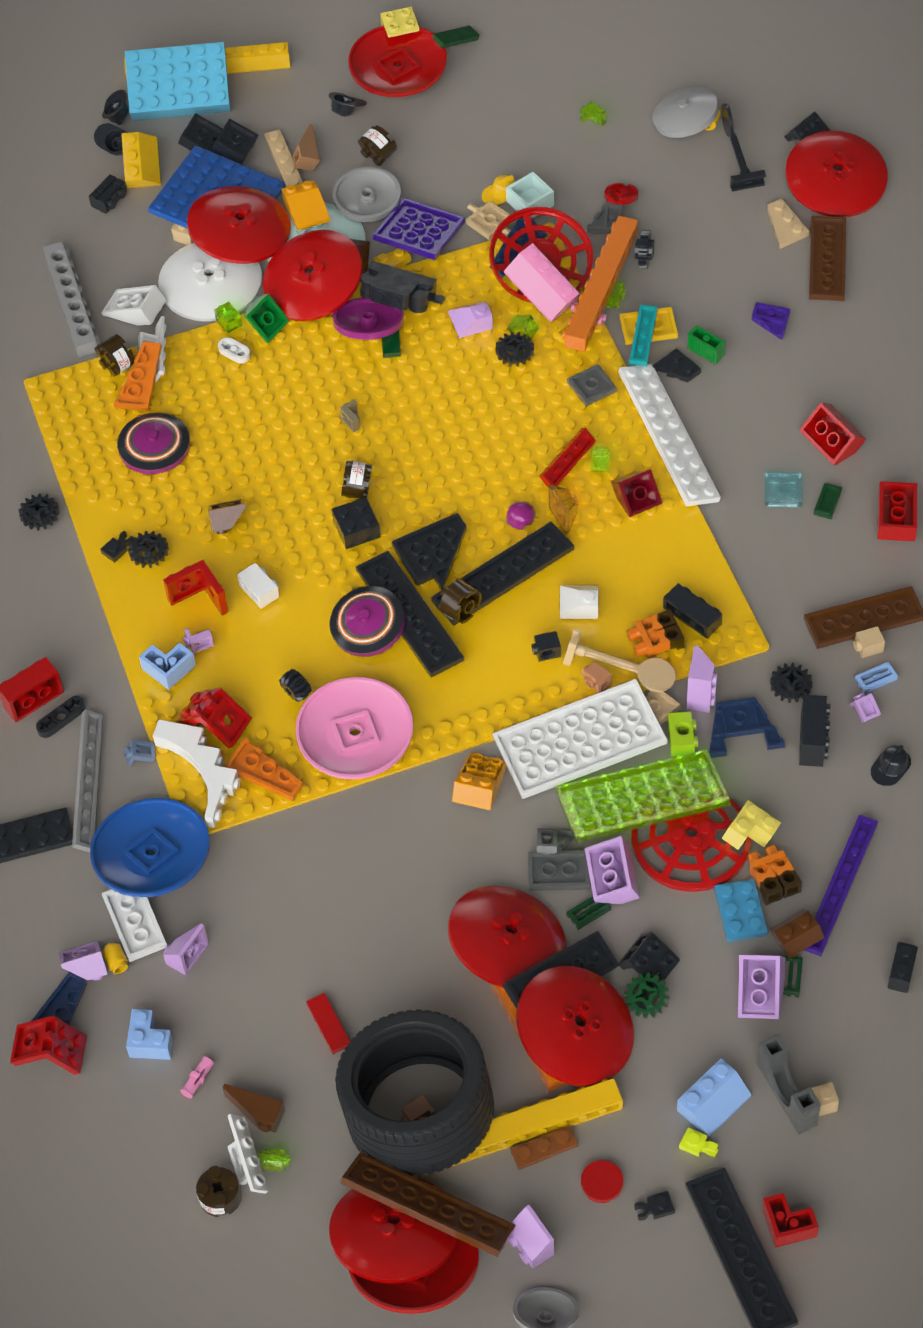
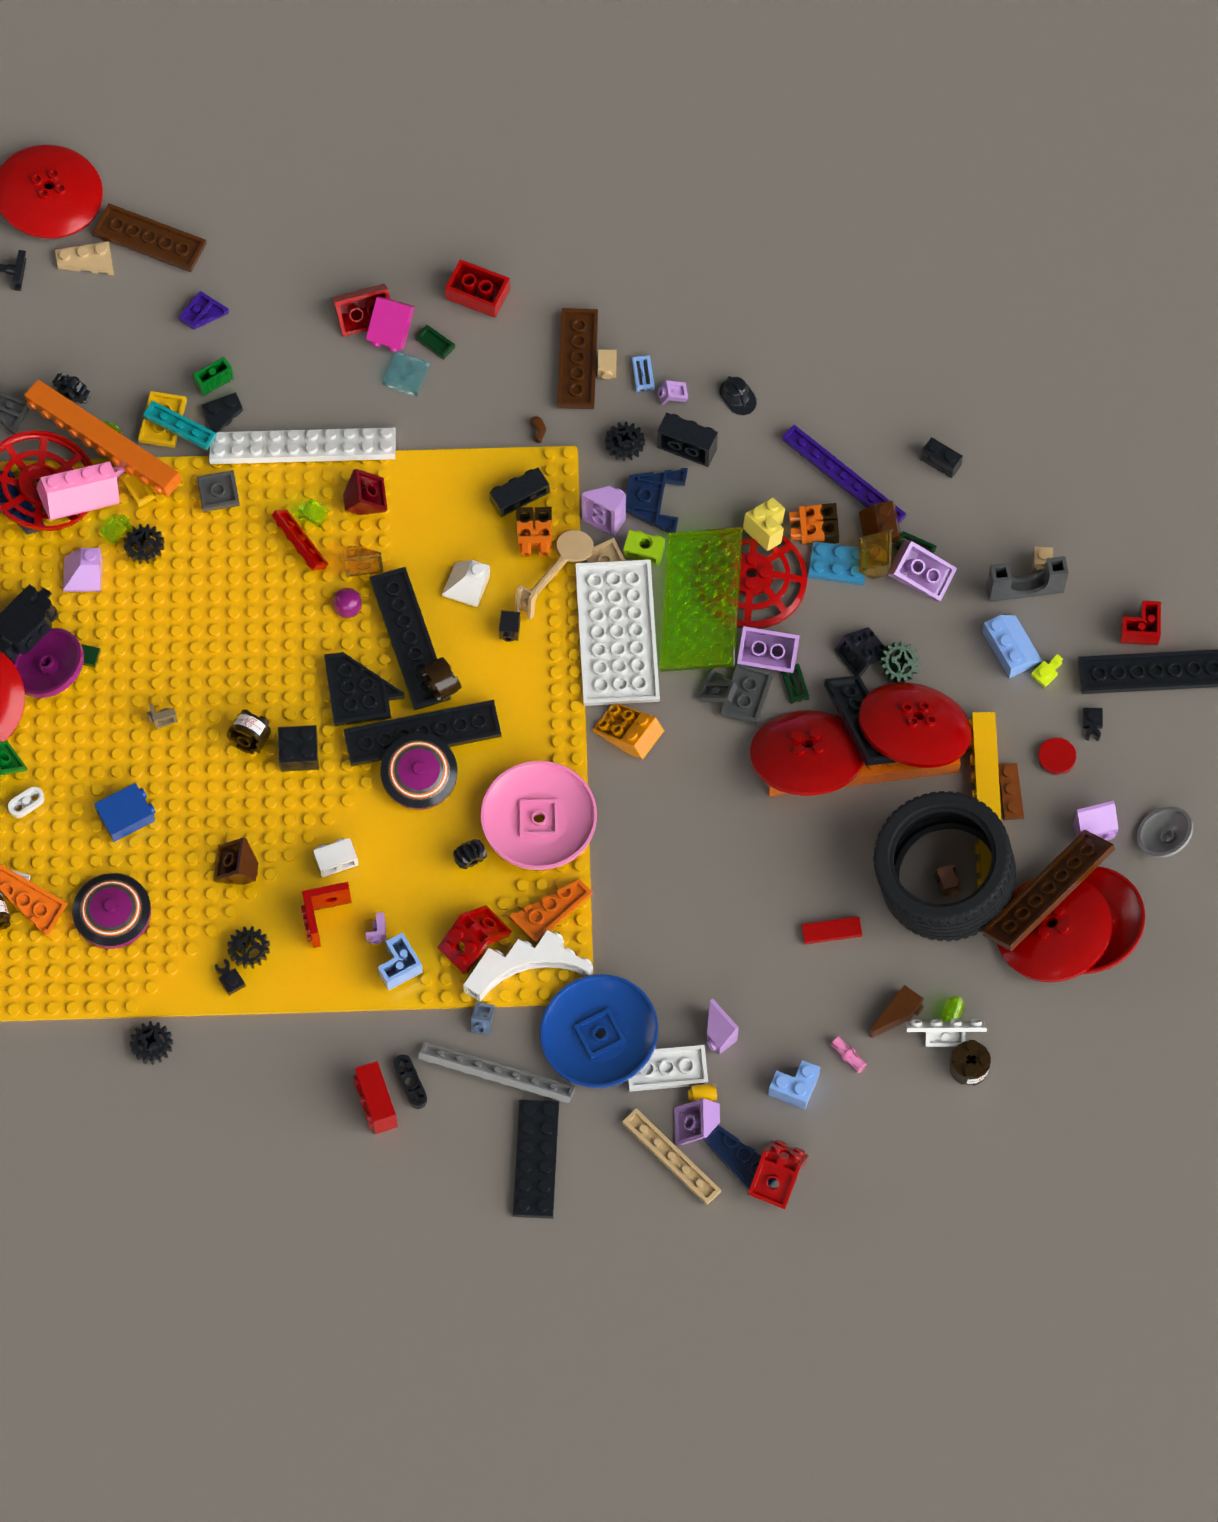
camera: 75 degrees left, 10 degrees up
(43, 952) = (671, 1156): none -> tan plate
(248, 419) = (125, 812): none -> blue brick
(597, 677) = (561, 595): nougat brick -> none
(755, 934) = (875, 554): none -> clear yellow slope
(774, 611) = (540, 427): none -> reddish brown arm
(823, 454) = (390, 323): none -> dark pink brick

